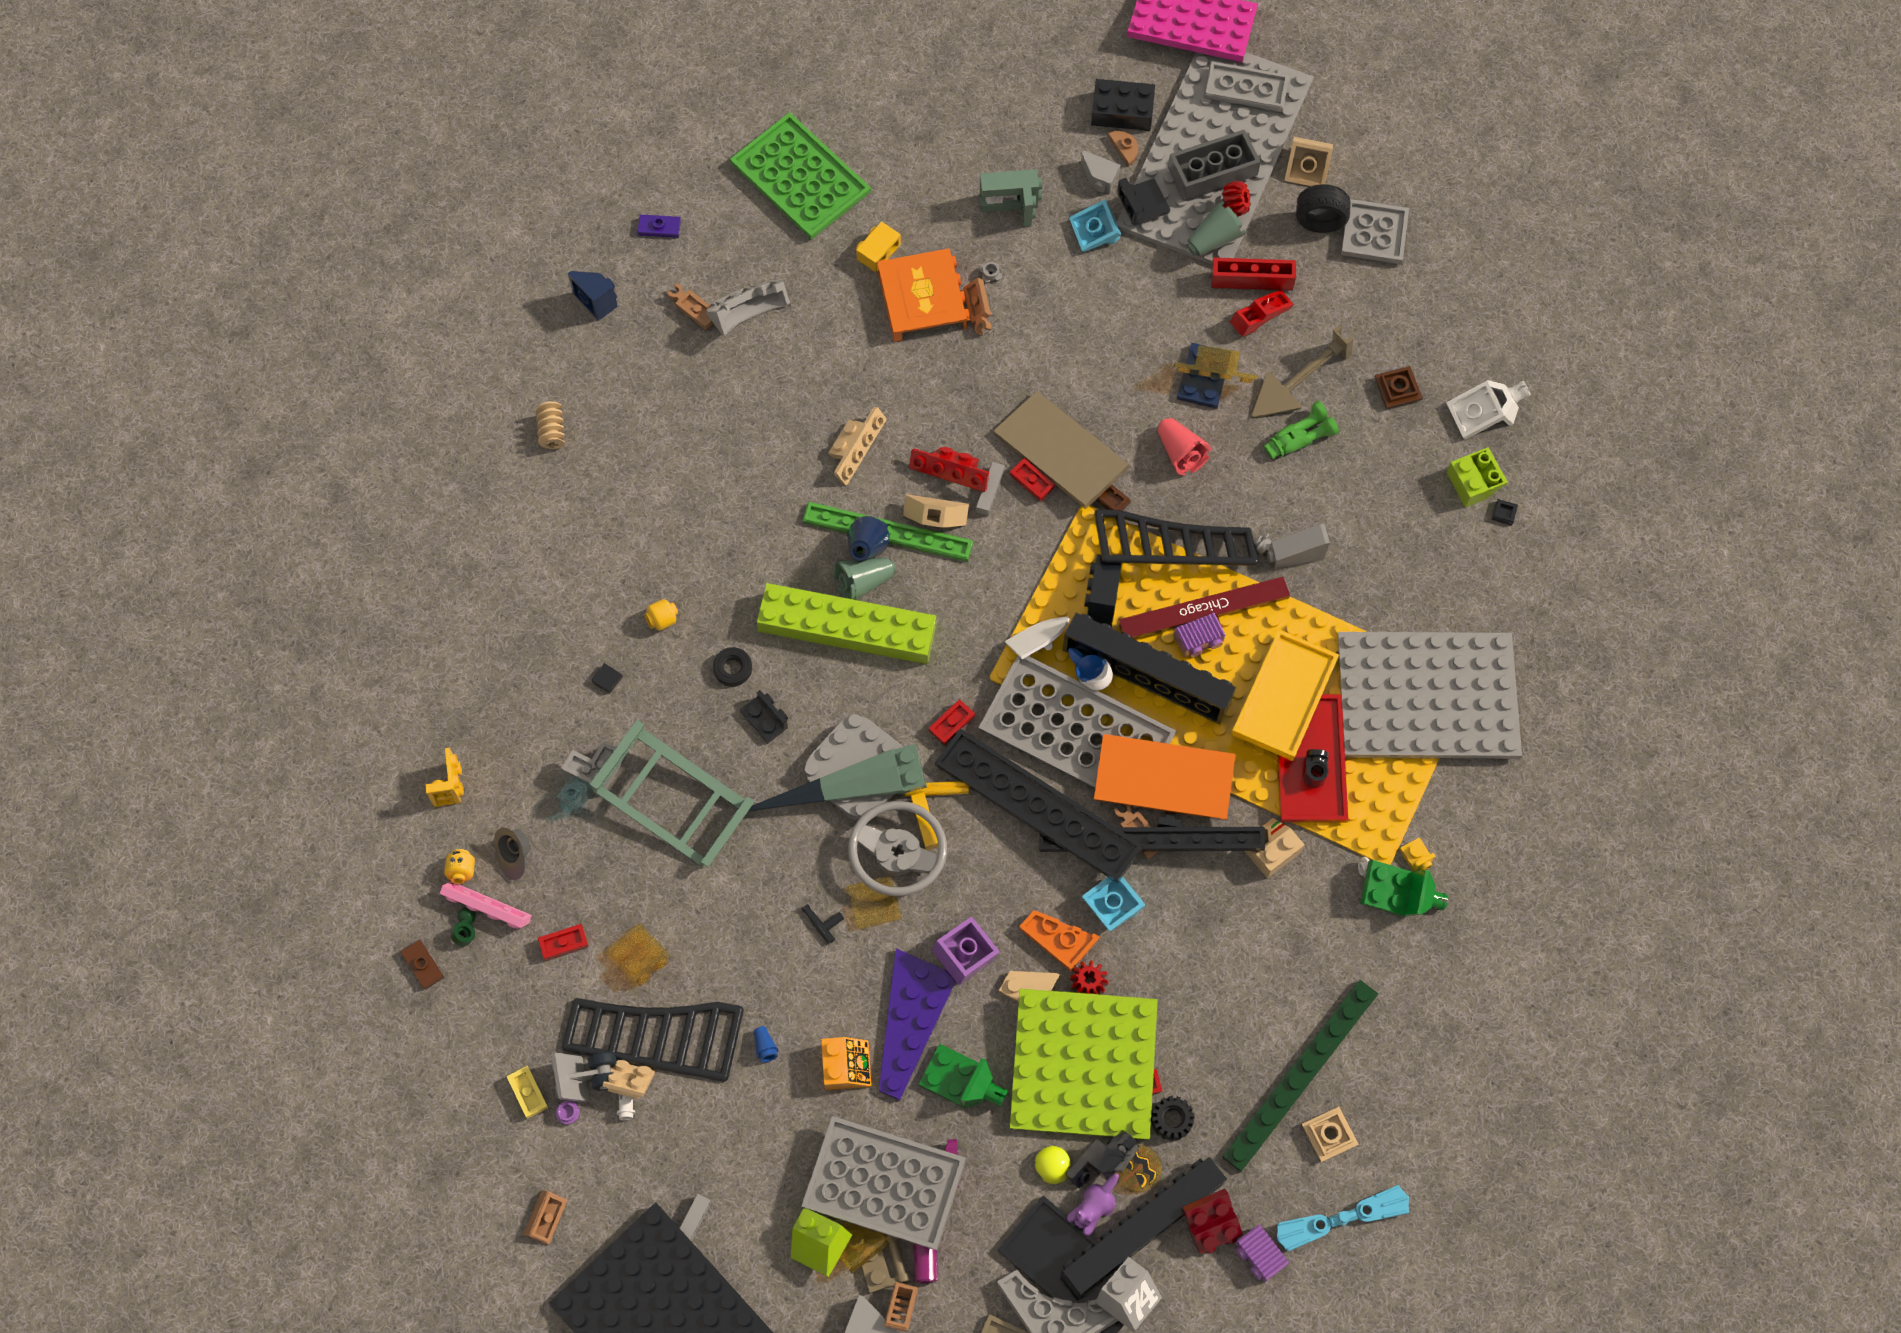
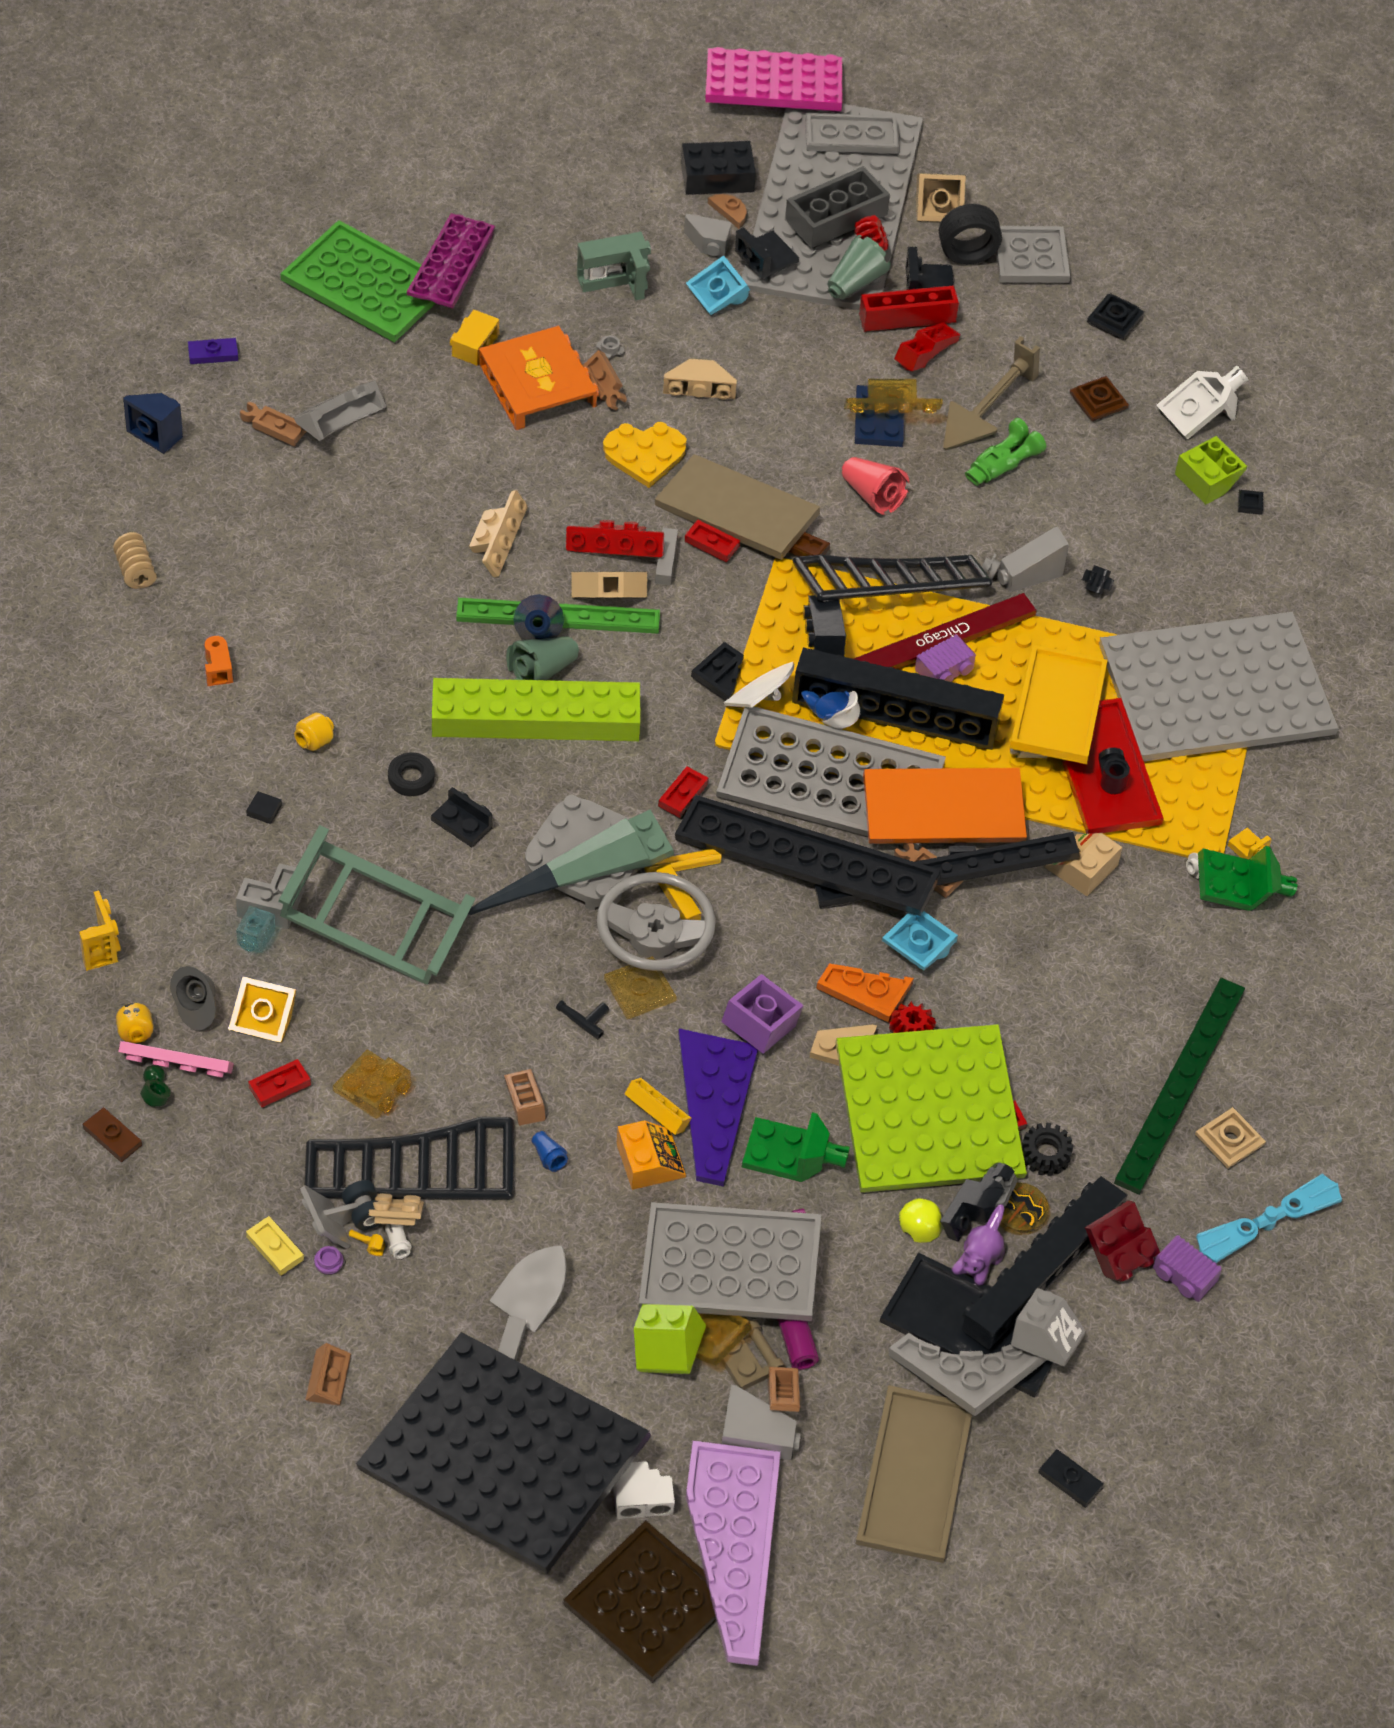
camera: 15 degrees left, 15 degrees down
(564, 872) = (262, 1009): none -> yellow slope
(599, 533) = (219, 667): none -> orange leg
(608, 1105) = (375, 1242): none -> yellow hand
(723, 1170) = (533, 1286): none -> light grey shield
(757, 1003) = (527, 1112): none -> medium nougat slope
(862, 1019) = (658, 1106): none -> yellow piece
(874, 168) = (451, 260): none -> magenta plate
(996, 382) = (645, 453): none -> yellow plate
(1009, 609) = (720, 670): none -> black wing
(1058, 318) = (700, 379): none -> tan slope
(1278, 242) = (926, 275): none -> black bracket
(1351, 572) = (1097, 579): none -> black gear
(1433, 315) = (1118, 325): none -> black piece

